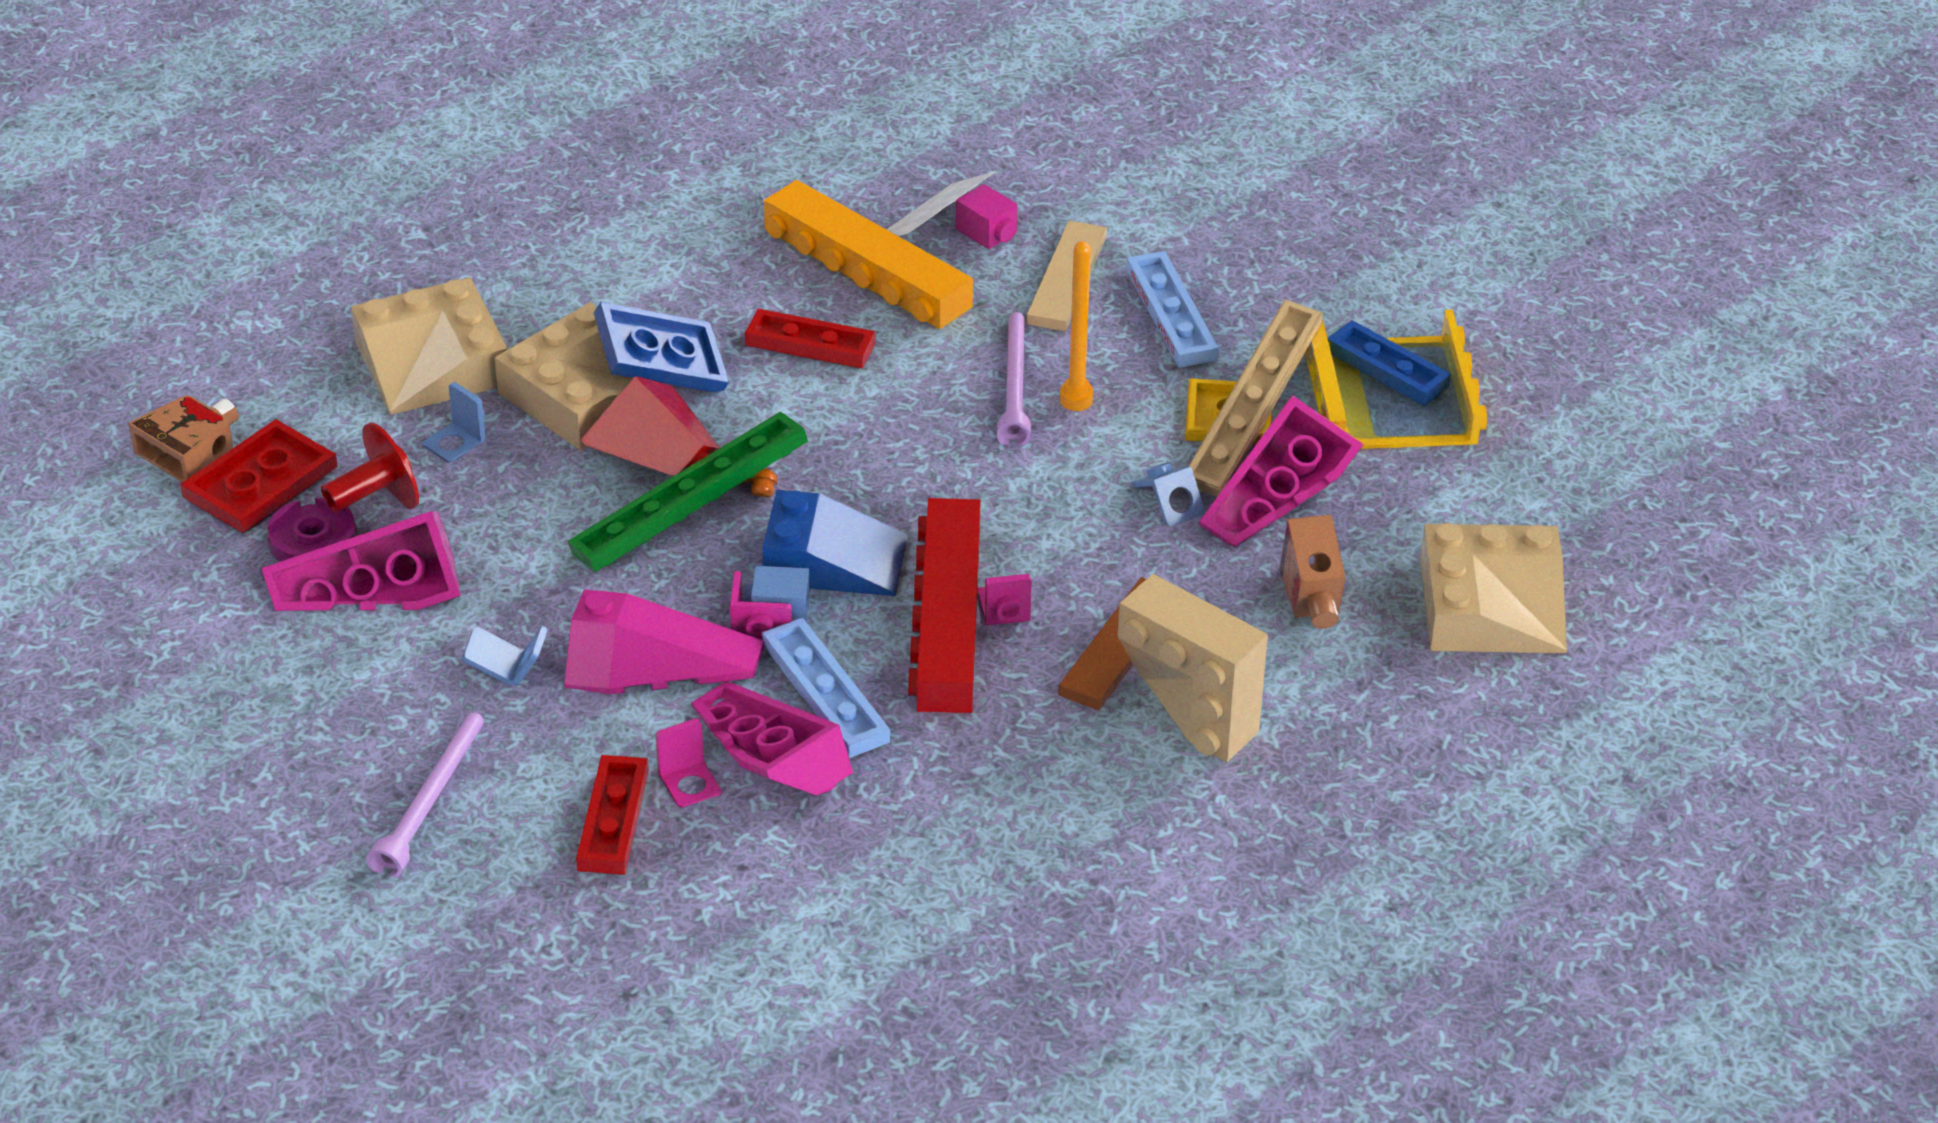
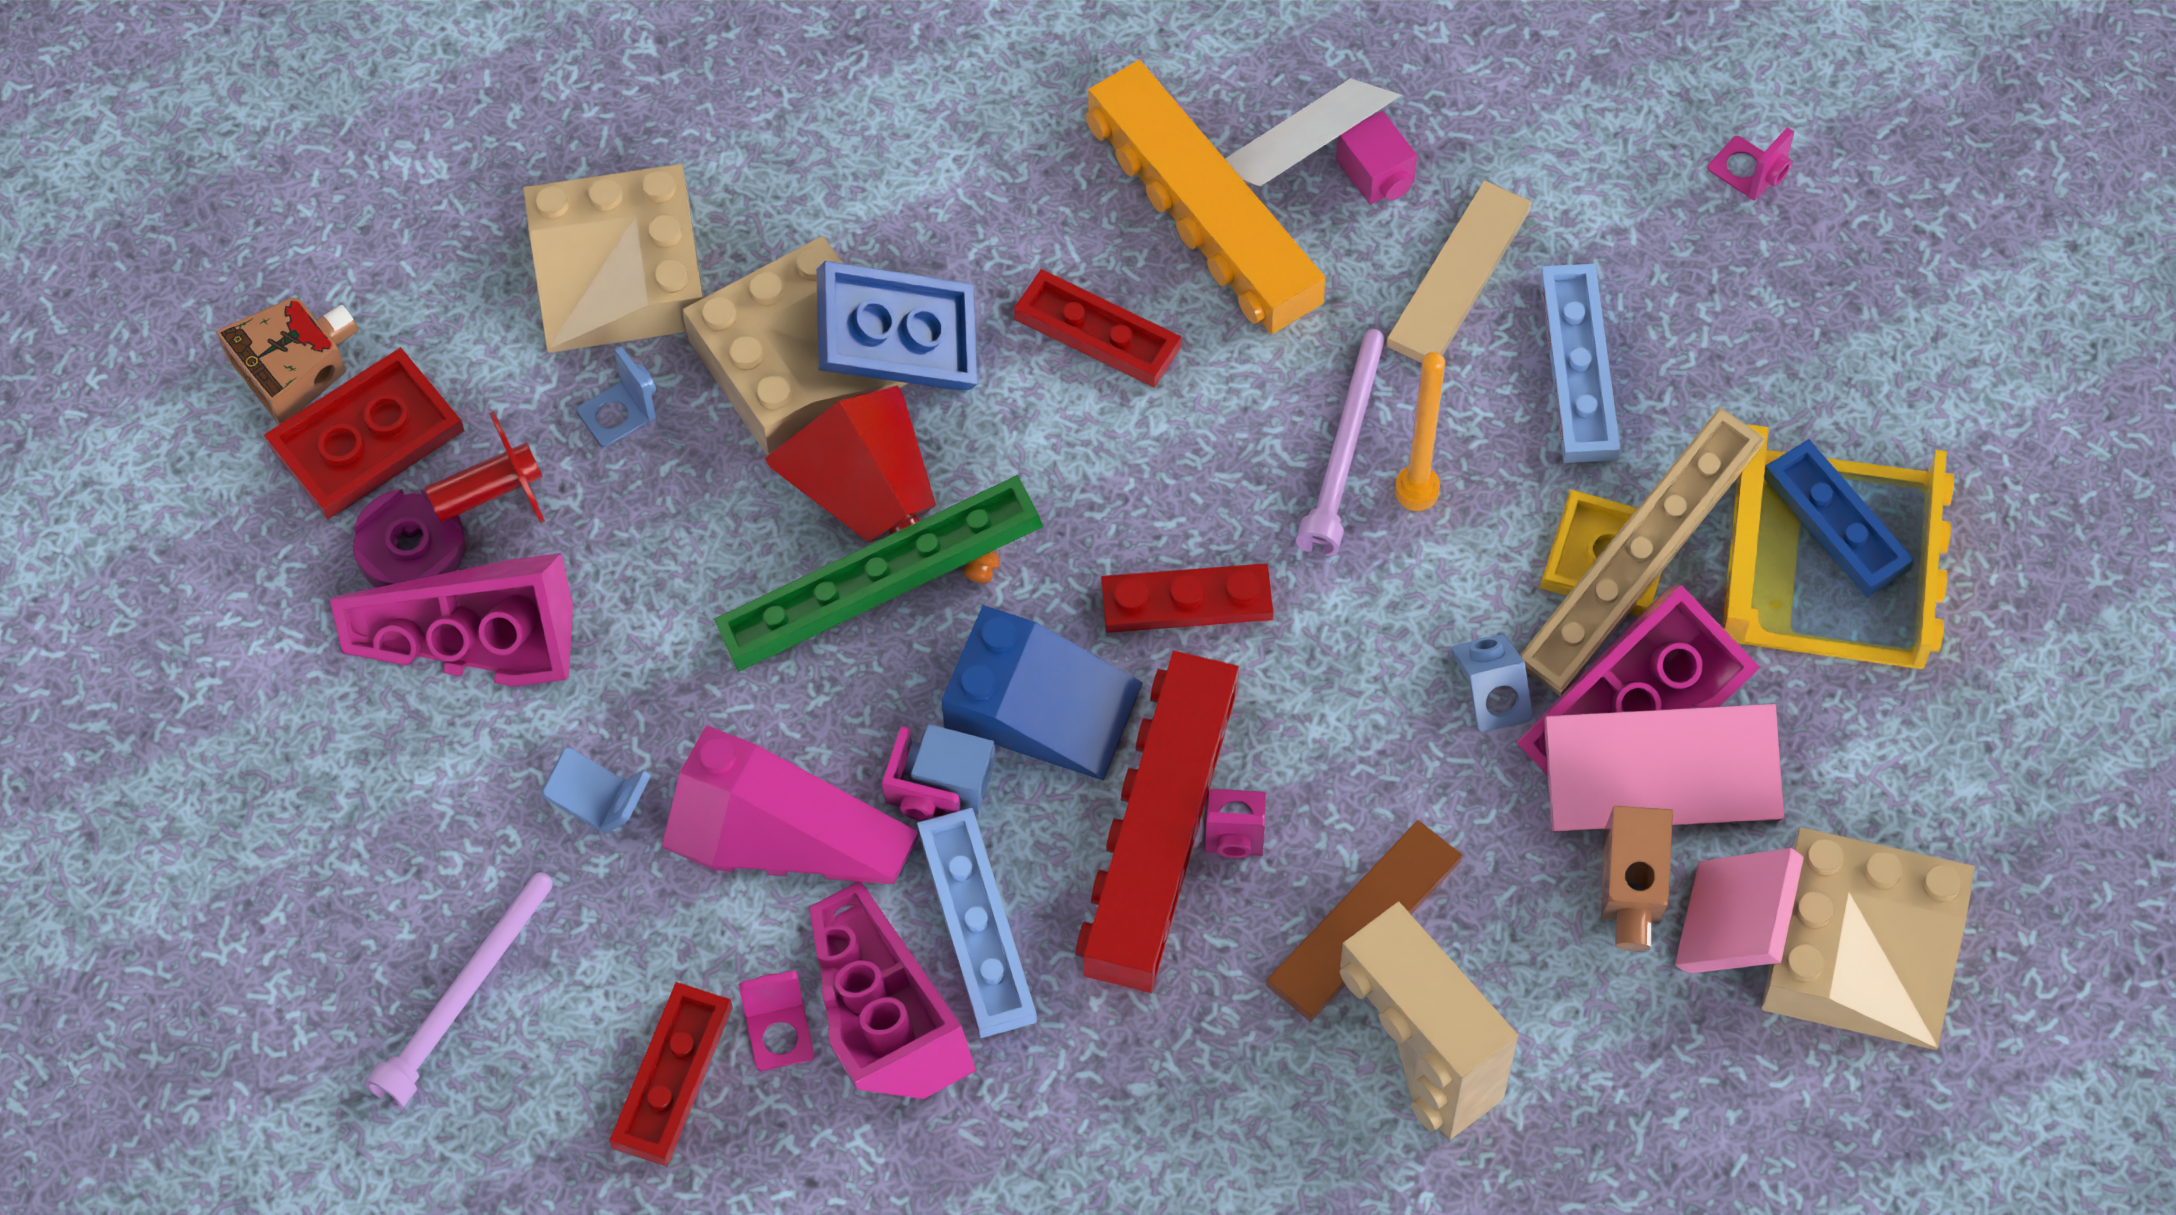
camera: 15 degrees right, 20 degrees up
(925, 480) = (1186, 598): none -> red plate
(1271, 186) = (1770, 167): none -> dark pink bracket
(1355, 496) = (1693, 760): none -> bright pink tile
(1396, 584) = (1739, 911): none -> bright pink tile

